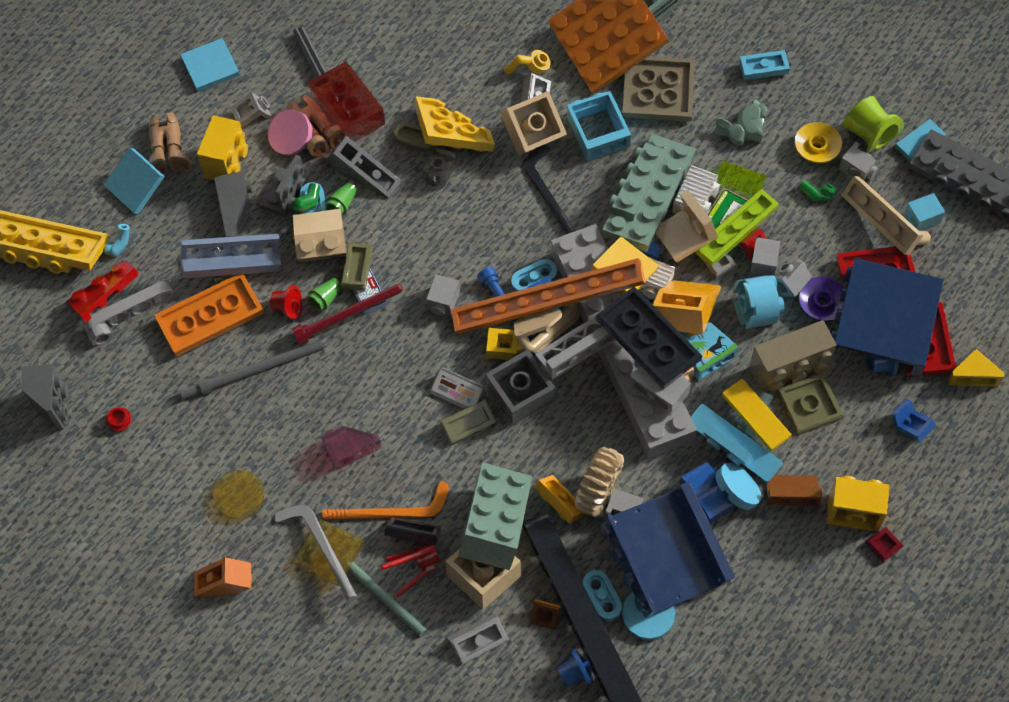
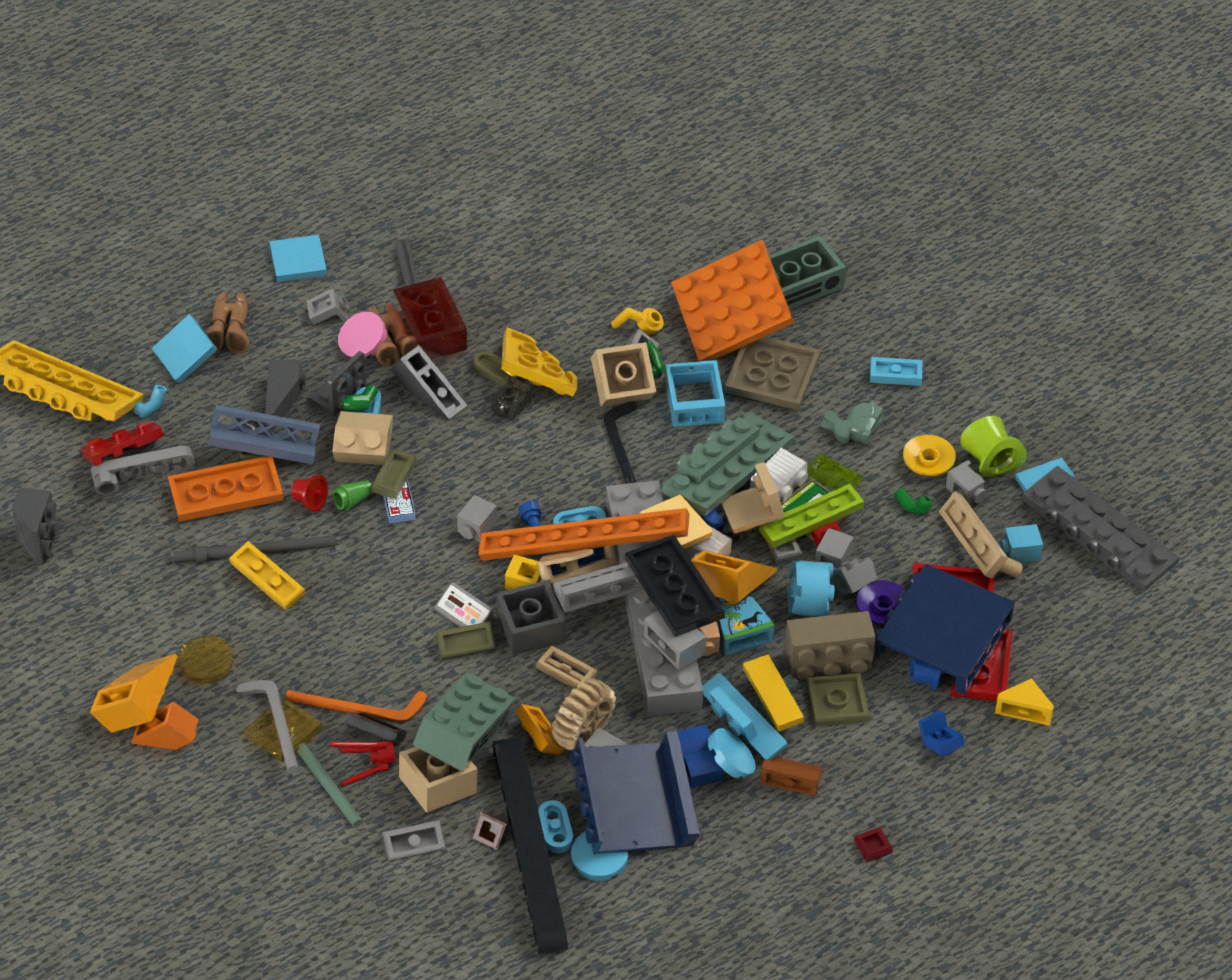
camera: 10 degrees right, 15 degrees down
(118, 419) = (102, 565): red plate -> none
(185, 550) = (134, 695): none -> light orange slope
(222, 148) = (285, 333): yellow brick -> none
(271, 396) = (267, 575): none -> yellow tile
(305, 332) = (320, 525): dark red piece -> none
(341, 198) = (398, 408): bright green cone -> none
(349, 445) = (334, 636): clear pink slope -> none
(557, 102) = (655, 359): none -> green arm
(562, 437) = (562, 671): none -> tan tile
(576, 670) = (505, 886): blue piece -> none
(857, 503) = (852, 793): yellow brick -> none

